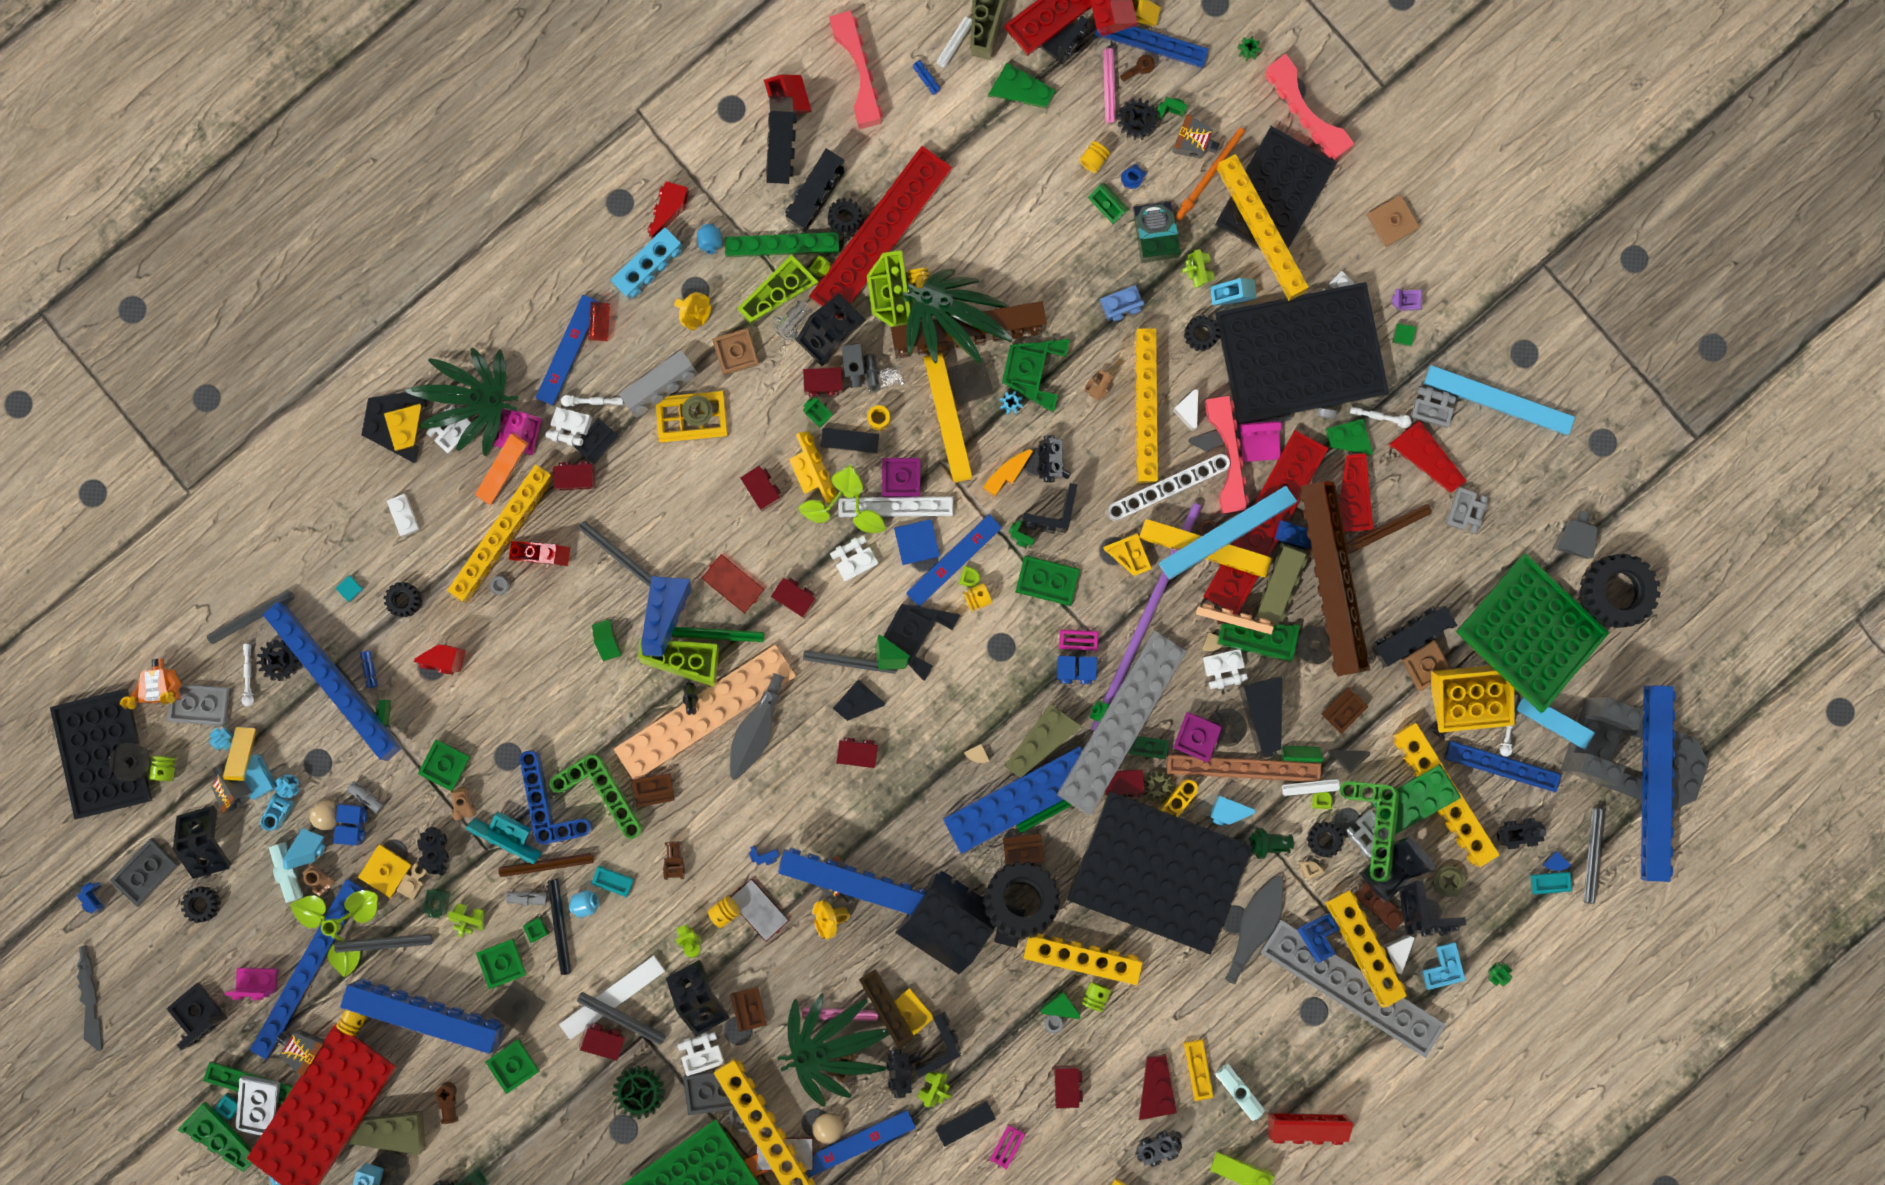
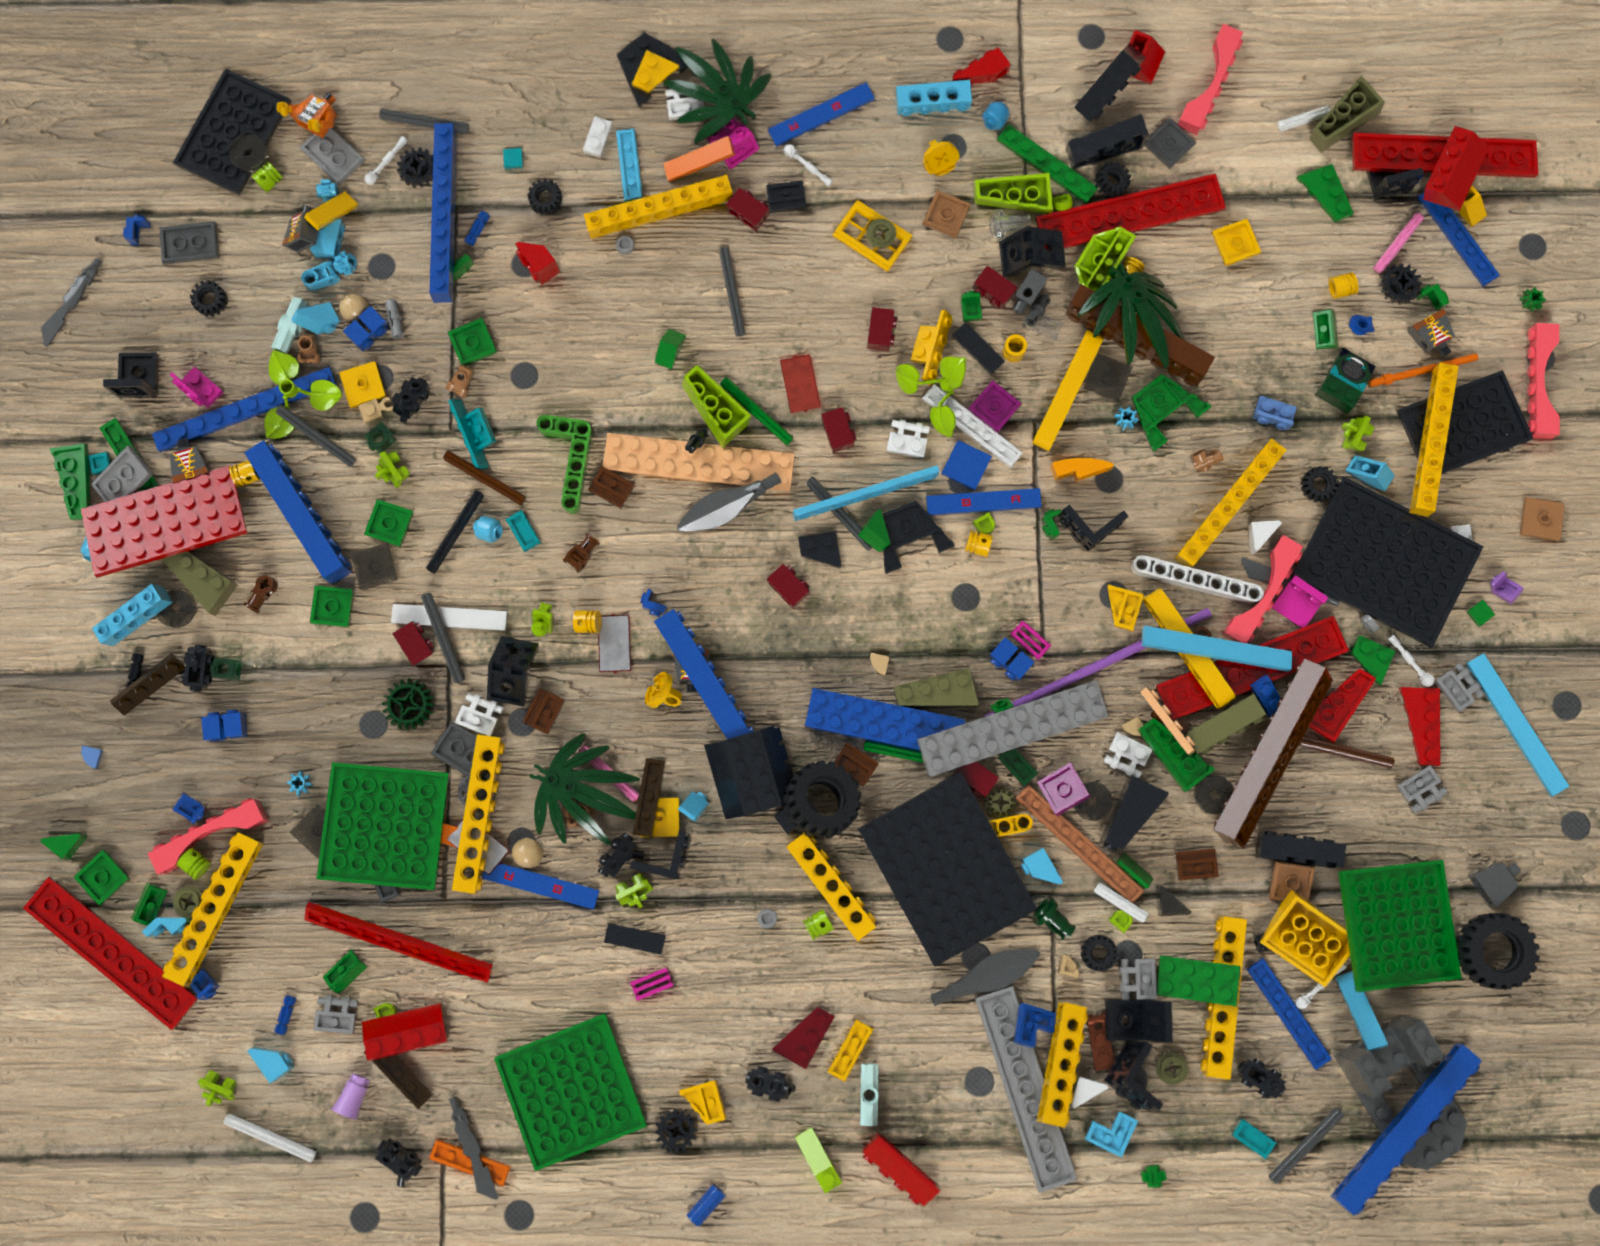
camera: 40 degrees right, 5 degrees down
(199, 843) = (245, 246): black bracket -> none
(448, 517) = (629, 164): none -> medium azure tile
(526, 898) = (449, 490): light grey pin -> none
(535, 930) = (435, 520): green tile -> none
(539, 553) = (675, 244): red slope -> none
(544, 805) = (520, 432): blue beam -> none
(570, 421) = (778, 165): white plate -> none
(599, 321) = (861, 111): clear red plate -> none
(658, 384) = (868, 190): light grey brick -> none
(664, 605) = (733, 356): blue wedge -> none
(857, 631) = (865, 493): none -> medium azure tile
(865, 148) = (1169, 143): none -> dark grey tile
(926, 77) = (1260, 127): blue axle -> none
(927, 986) = (694, 805): none -> medium azure slope
(982, 189) = (1236, 242): none -> yellow plate
(1047, 580) = (1043, 575): green tile -> none
(1051, 459) = (1122, 484): black brick -> none
(1060, 1006) = (784, 909): green slope -> none
(1067, 1086) = (737, 975): dark red brick -> none
(1144, 65) = (1438, 249): reddish brown plate -> none
(1380, 823) = (1154, 973): bright green beam -> none
(1556, 862) = (1271, 1126): blue tile -> none

